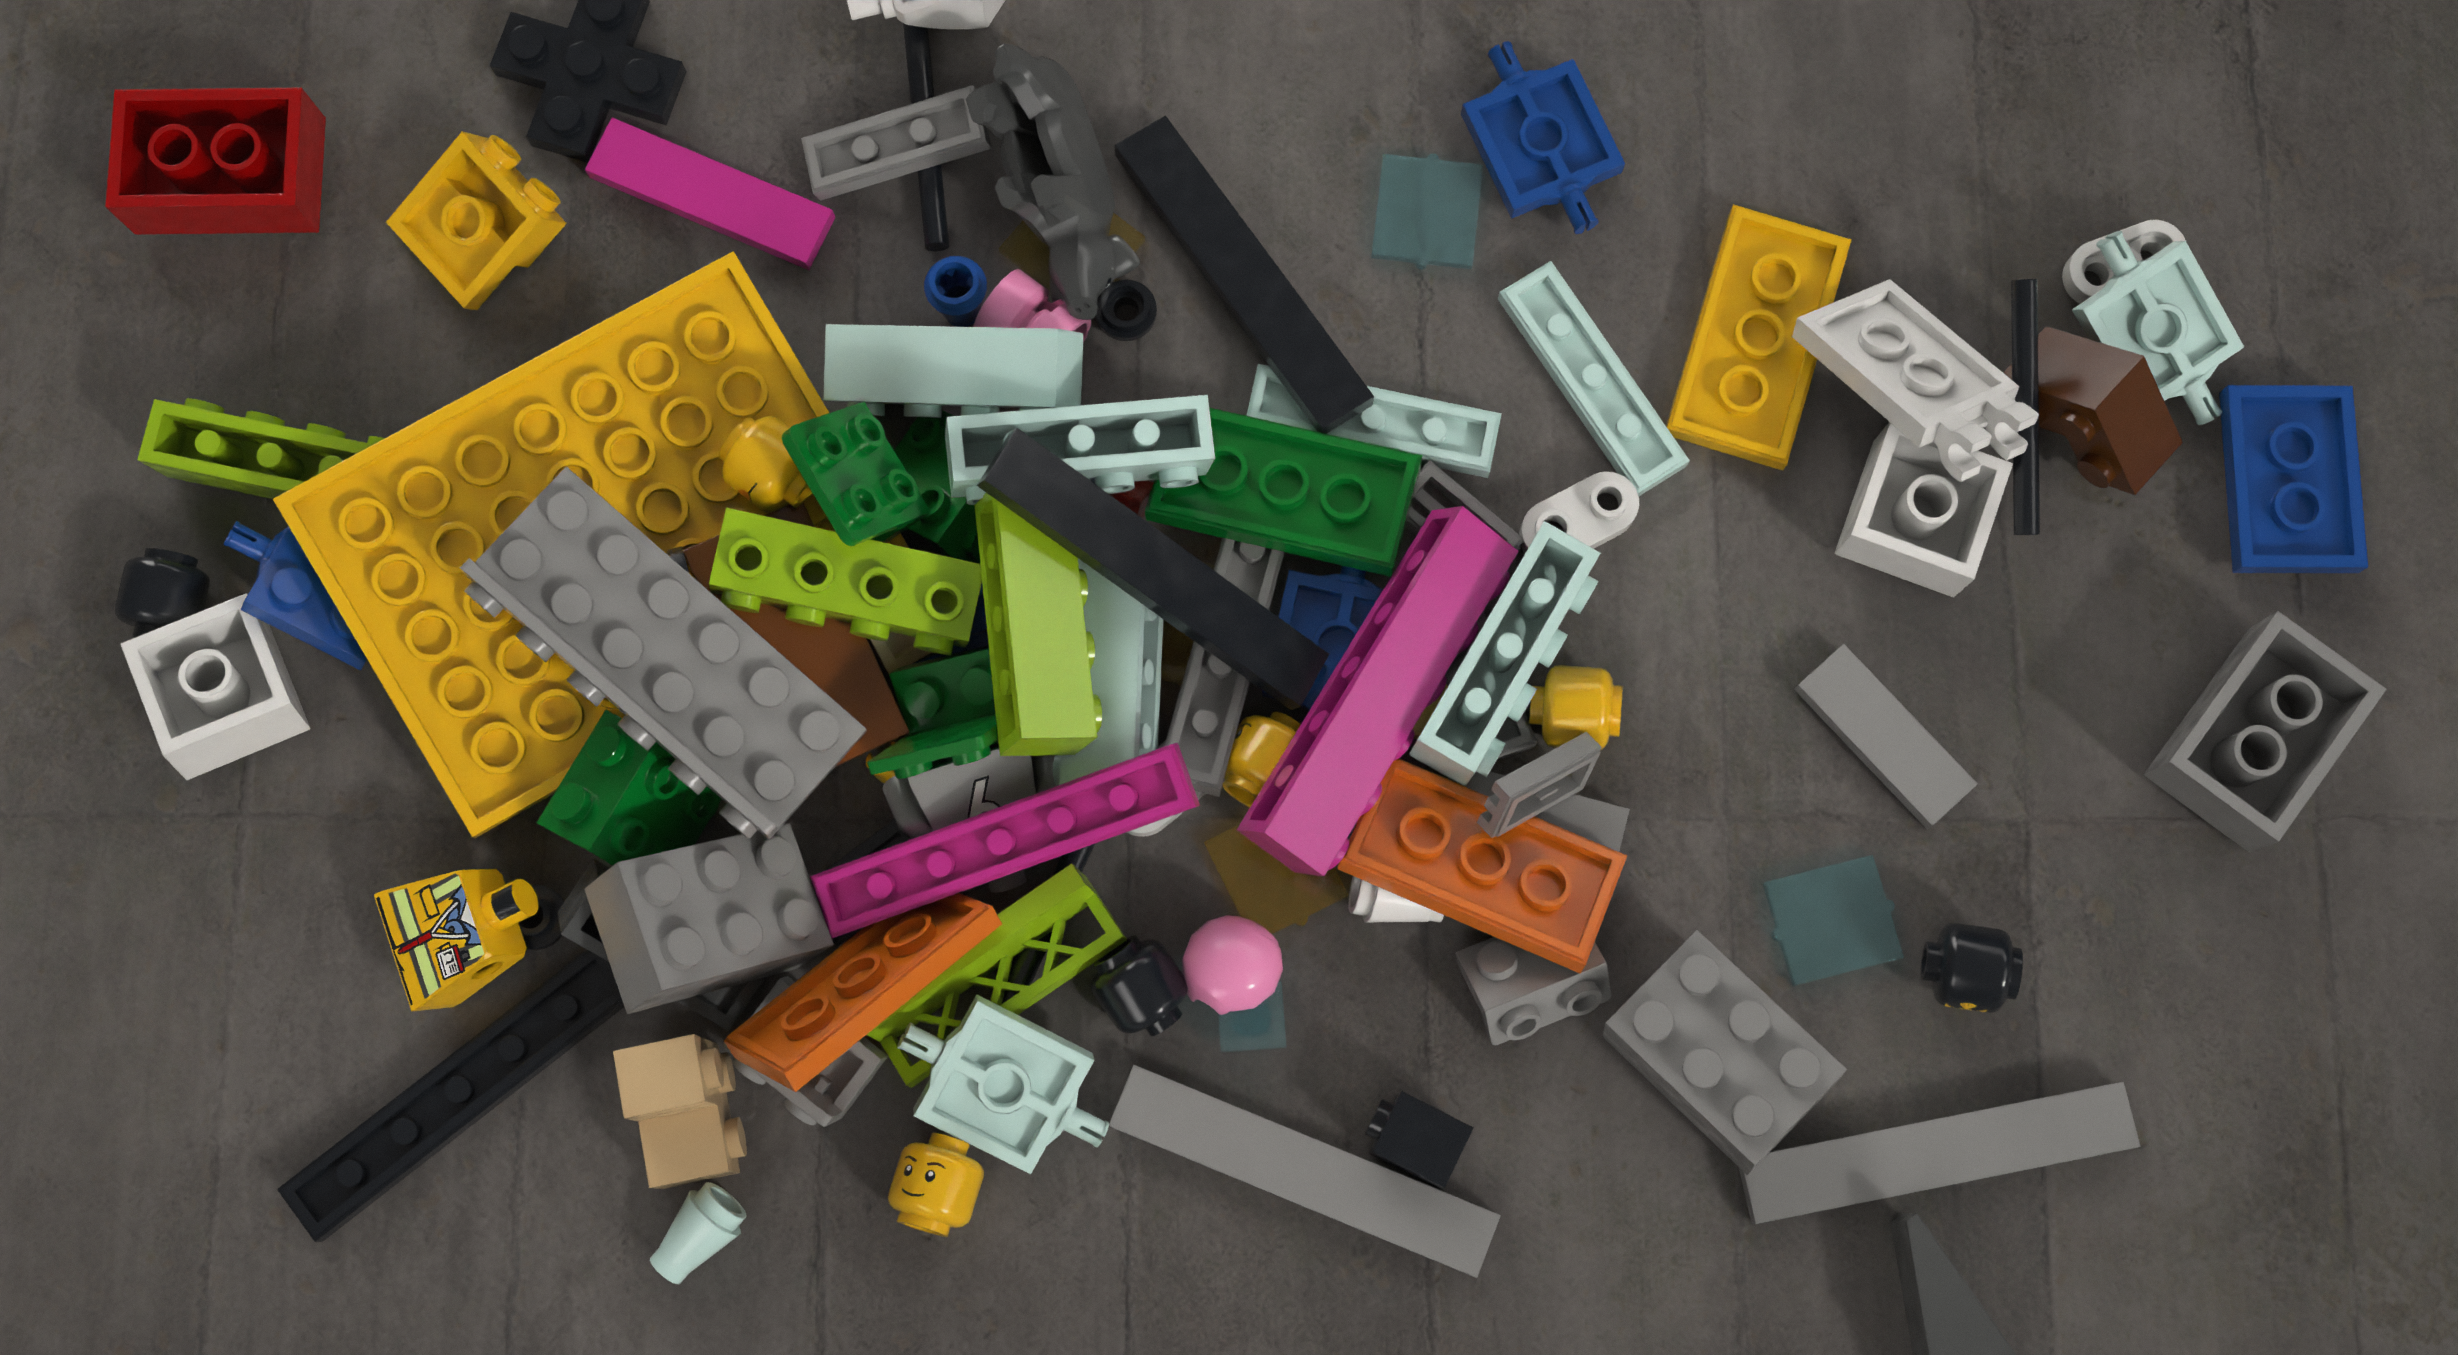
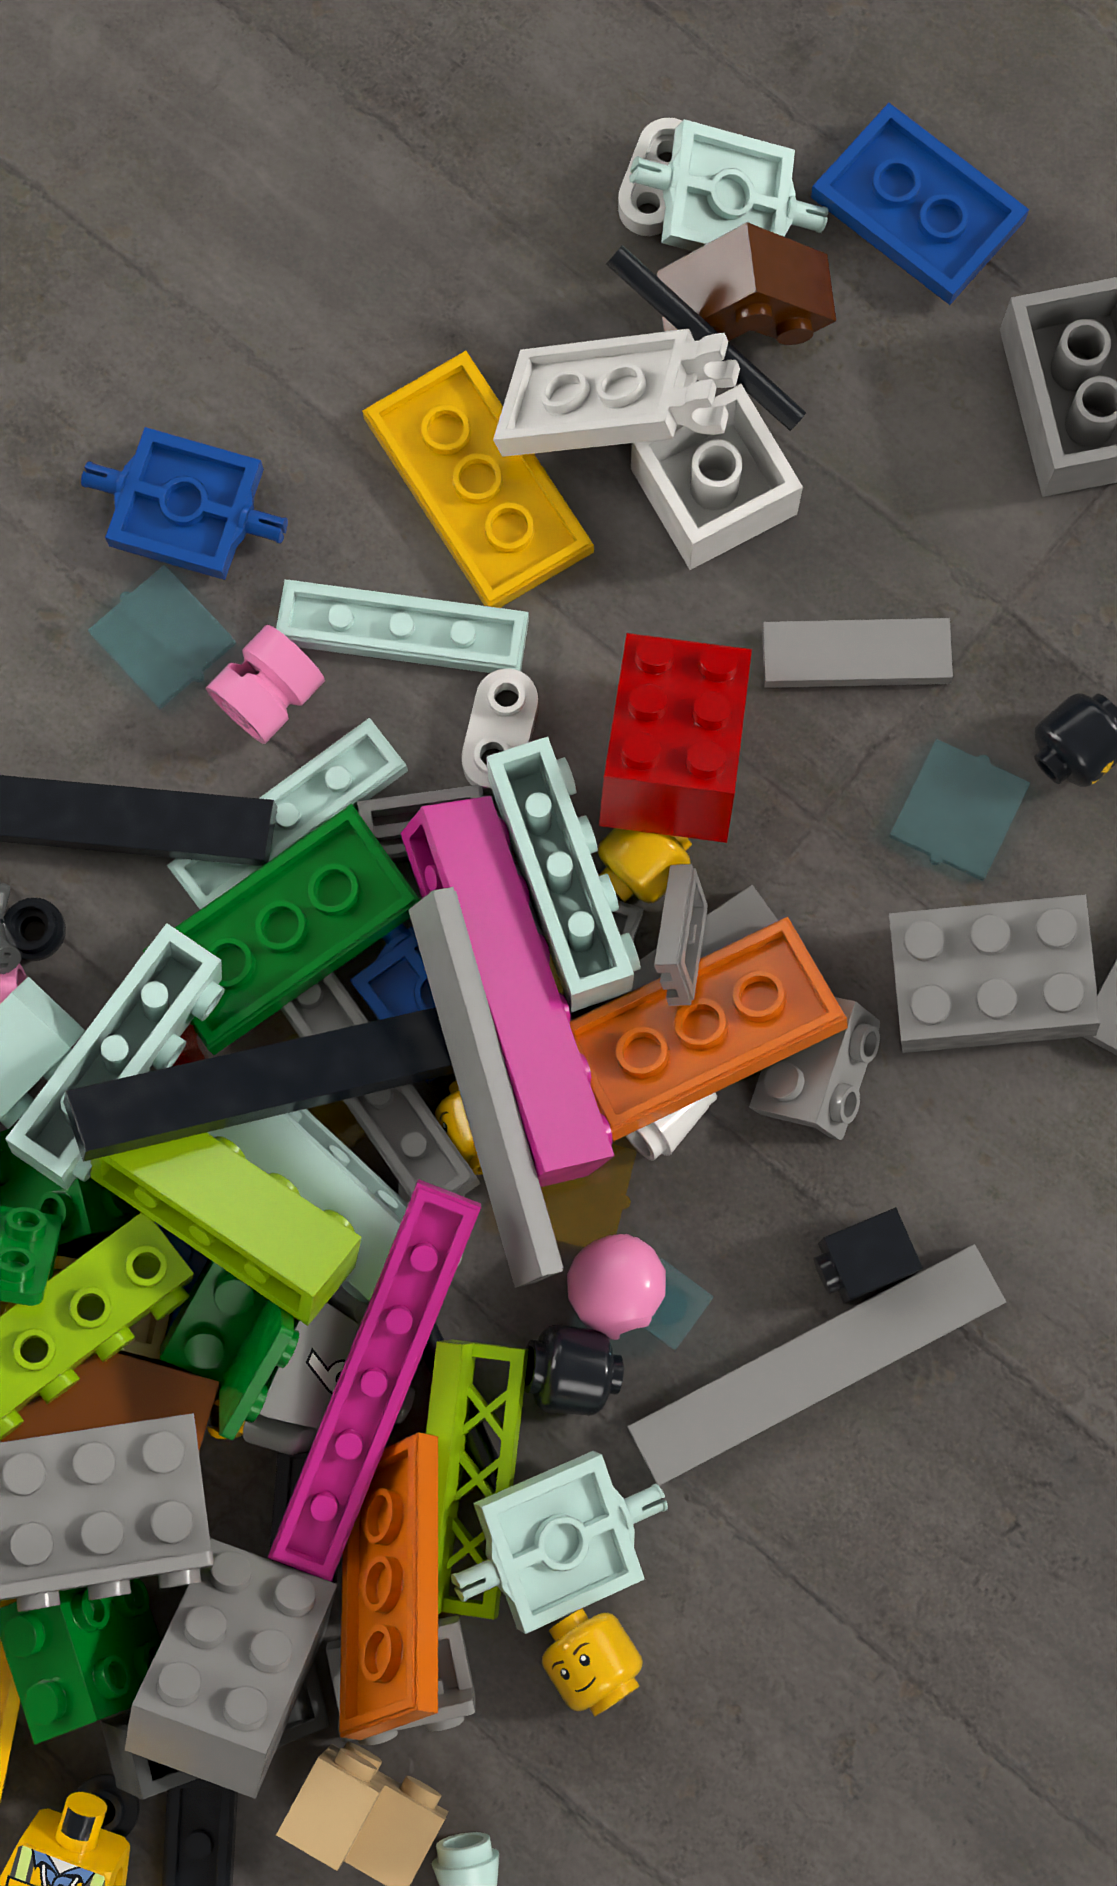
camera: 45 degrees left, 0 degrees up
(1291, 735) = (485, 1088): none -> light grey tile
(1457, 315) = (265, 684): none -> bright pink wheel
(1688, 651) = (675, 738): none -> red brick

